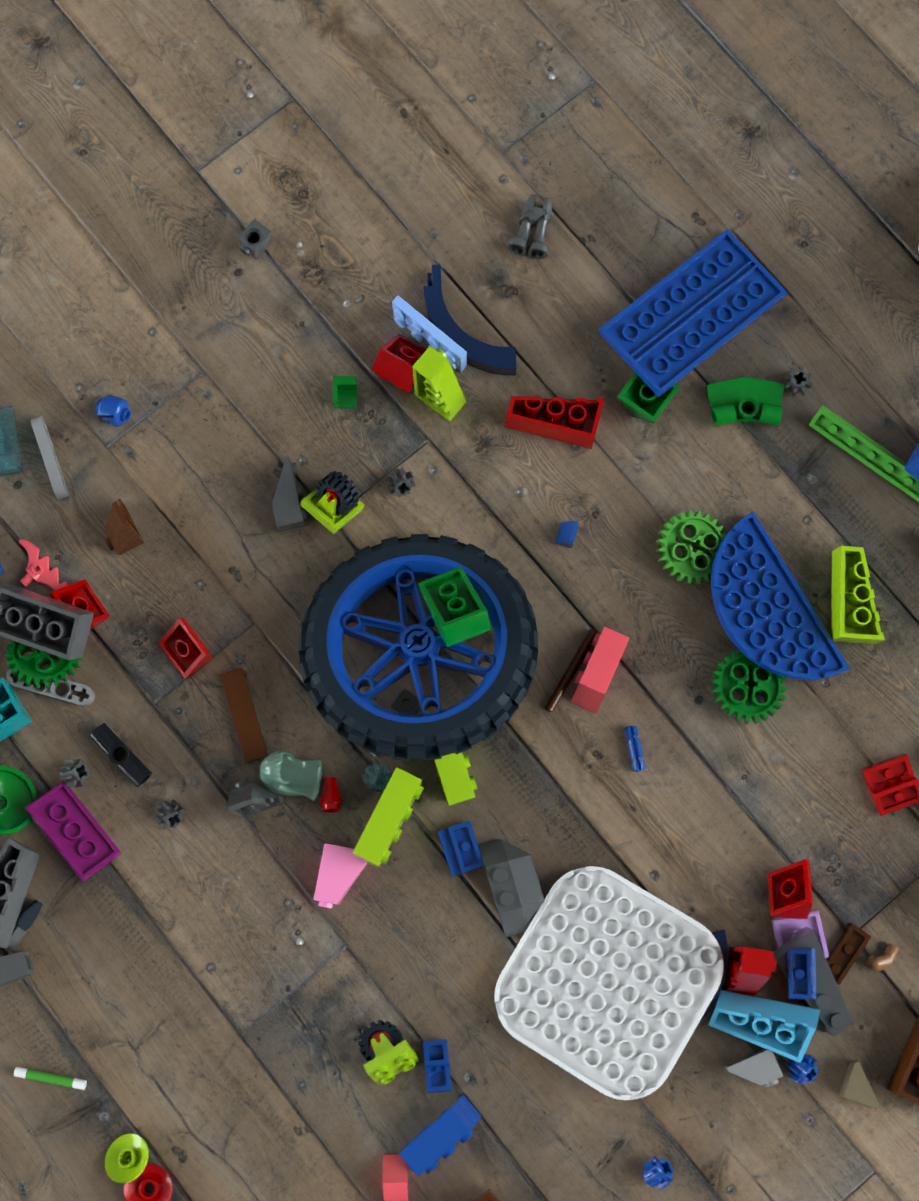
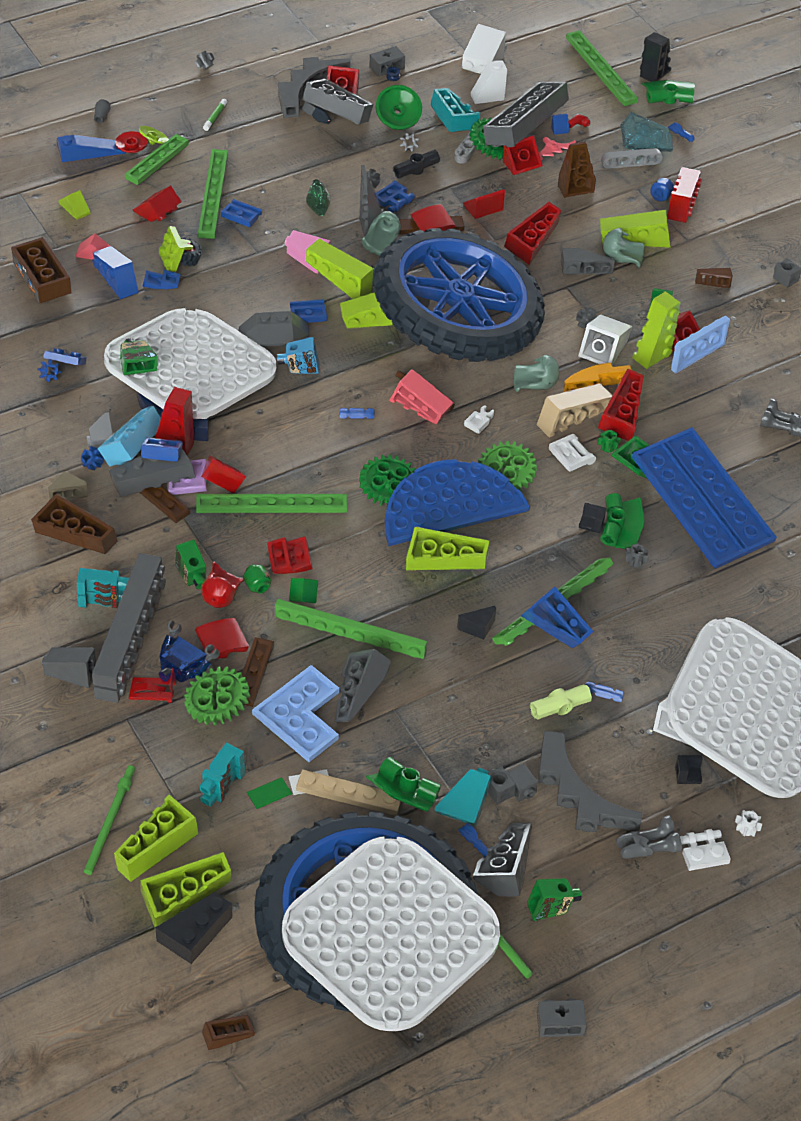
camera: 95 degrees right, 30 degrees down
(73, 831) = (370, 138): magenta tile -> none
(119, 379) = (684, 195): none -> red wedge
(177, 1139) = (156, 159): none -> bright green plate
(193, 782) = (391, 193): none -> blue plate
(212, 436) = (644, 228): none -> lime wedge
(219, 882) = (318, 198): none -> clear green hat
(238, 1036) = (213, 194): none -> bright green plate
(247, 710) = (432, 217): none -> red slope
(249, 571) = (533, 232): none -> red wedge
(255, 448) = (621, 249): none -> sand green piece
(275, 985) = (241, 213): none -> blue plate
(281, 318) = (720, 277): none -> reddish brown slope
(284, 1112) = (158, 205): none -> red slope
(330, 796) = (363, 254): red cone -> none
(333, 501) = (576, 279): plate -> none
(437, 453) = (604, 340): none -> white slope
(455, 606) = (480, 301): green slope -> none
(479, 354) = (705, 361): dark blue arch -> none
(514, 466) = (599, 374): none -> light orange slope
(526, 532) = (537, 376): none -> sand green piece
(560, 829) = (300, 356): none -> dark azure torso
(567, 533) = (530, 403): blue slope -> none
(573, 477) = (572, 407): none -> tan wedge
(616, 595) = (479, 421): none -> white plate
(621, 426) = (609, 441): none -> green gear
(629, 1157) = (59, 355): none -> plate
(644, 1051) = (137, 357): none -> green torso
(649, 479) = (568, 456): none -> white plate
(749, 437) = (592, 517): none -> black panel
(818, 824) = (271, 503): none -> bright green plate
(884, 961) = (154, 523): medium nougat arm -> none

